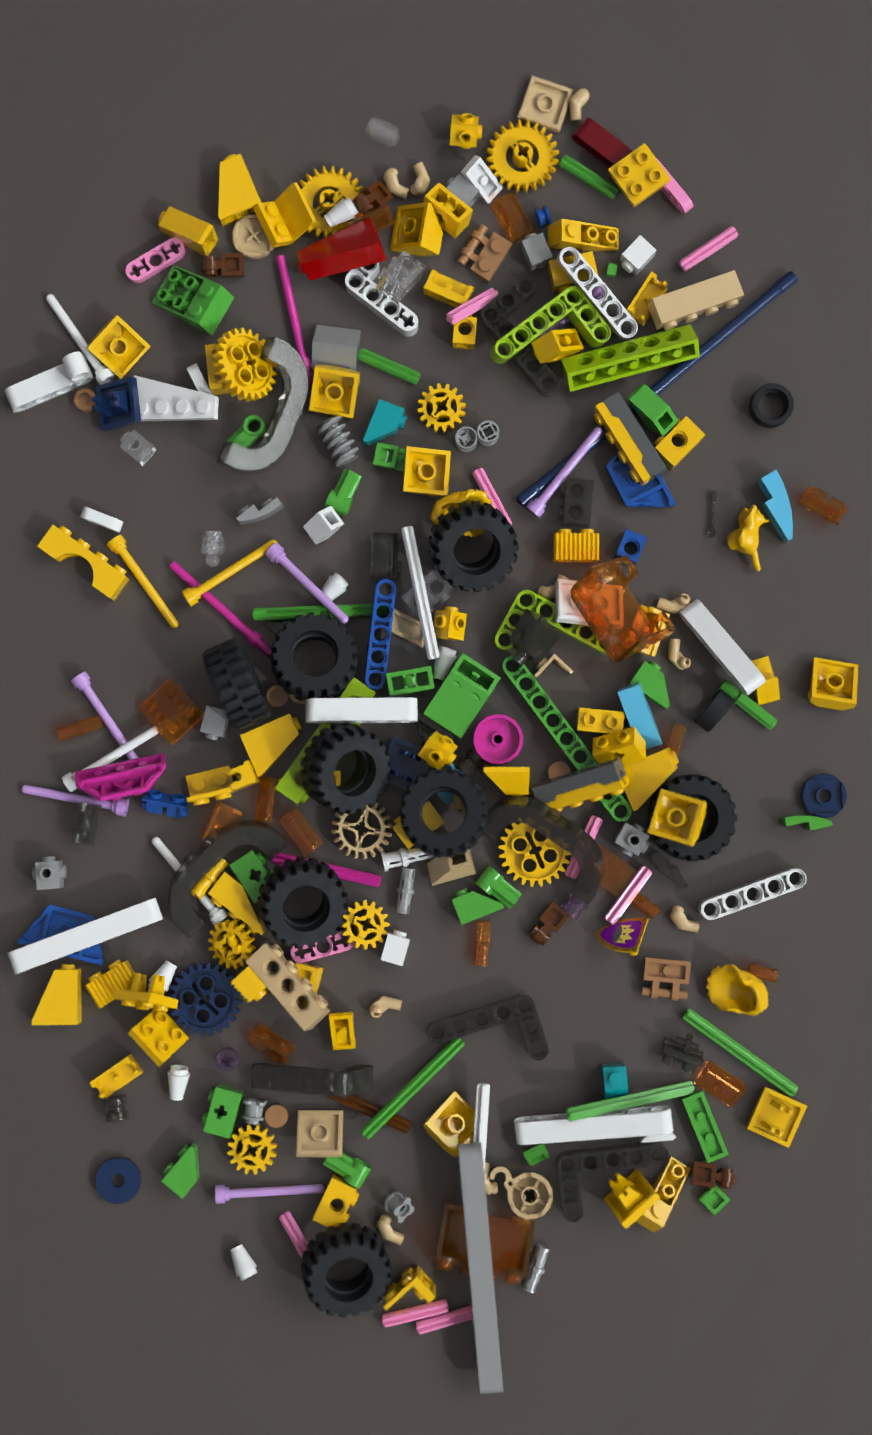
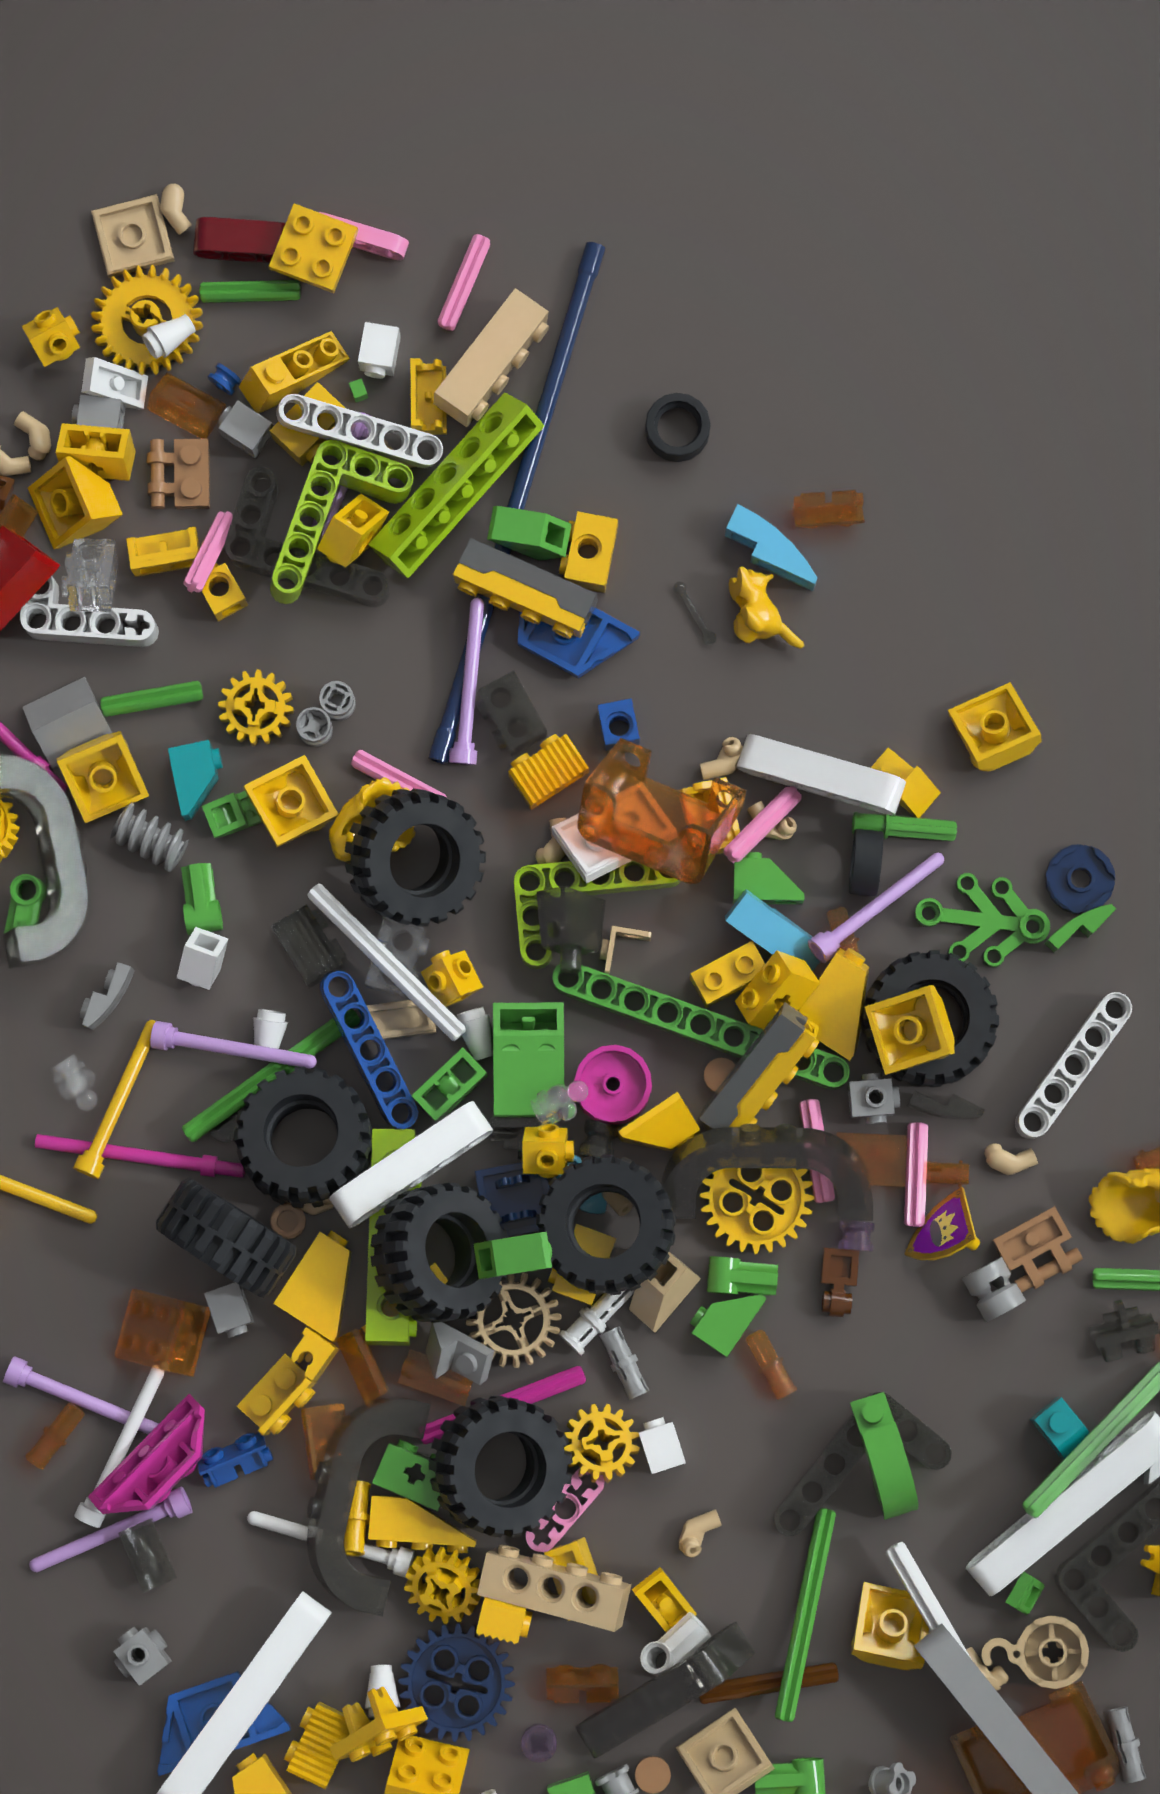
camera: 30 degrees left, 5 degrees down
(320, 826) = (456, 1351): none -> light grey slope
(334, 1057) = (677, 1643): none -> white piece
(383, 796) = (513, 1255): none -> bright green slope
(462, 730) = (559, 1102): none -> clear piece
(511, 1033) = (885, 1455): none -> bright green arch
(526, 171) = (167, 336): none -> white cone
(628, 992) = (999, 1301): none -> light grey wheel
(662, 740) = (826, 944): none -> lavender piece
(672, 652) = (762, 824): none -> bright pink axle
(759, 784) = (988, 920): none -> bright green plant

